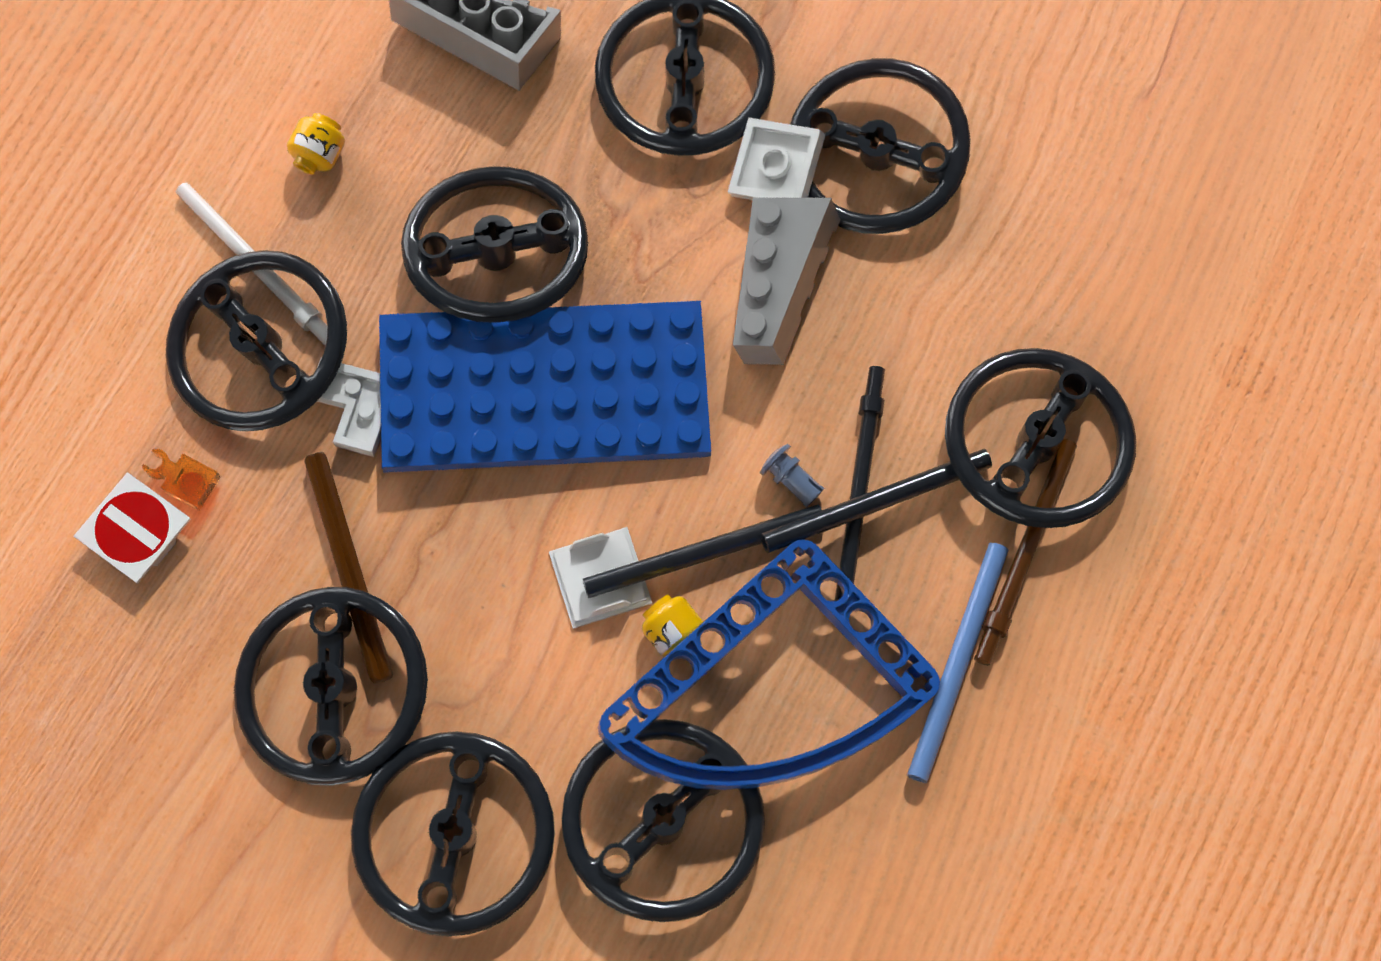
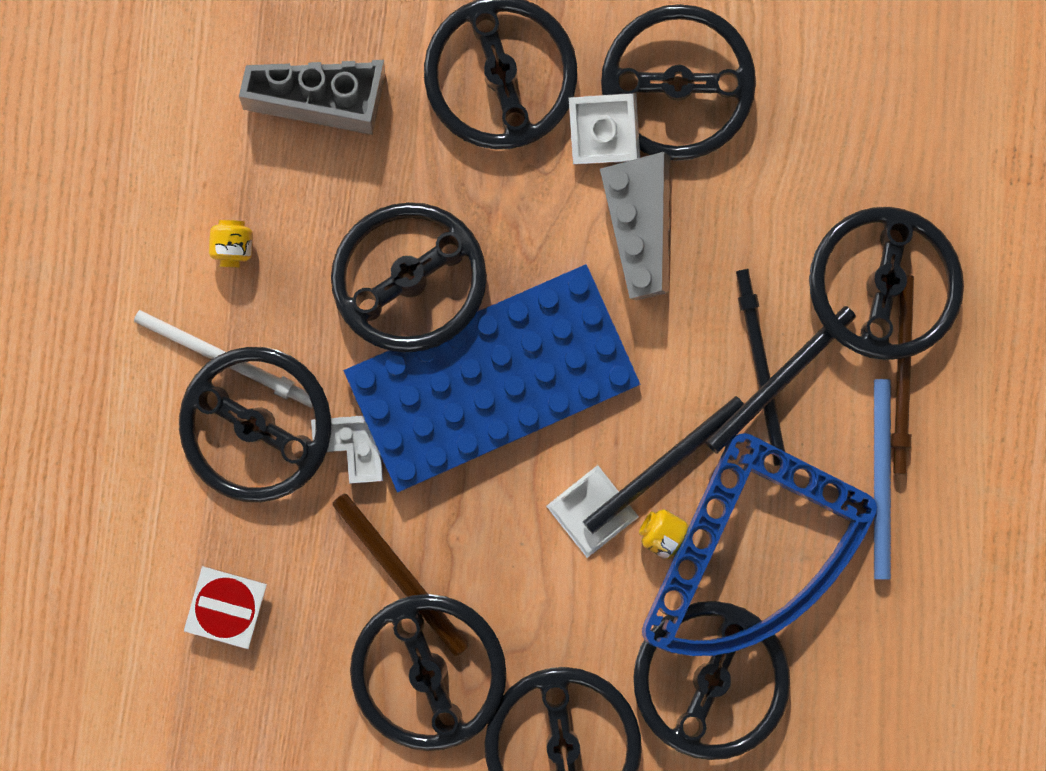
camera: 25 degrees left, 15 degrees up
(185, 480) = (249, 553): clear orange plate -> none
(792, 475) = (706, 380): sand blue pin -> none

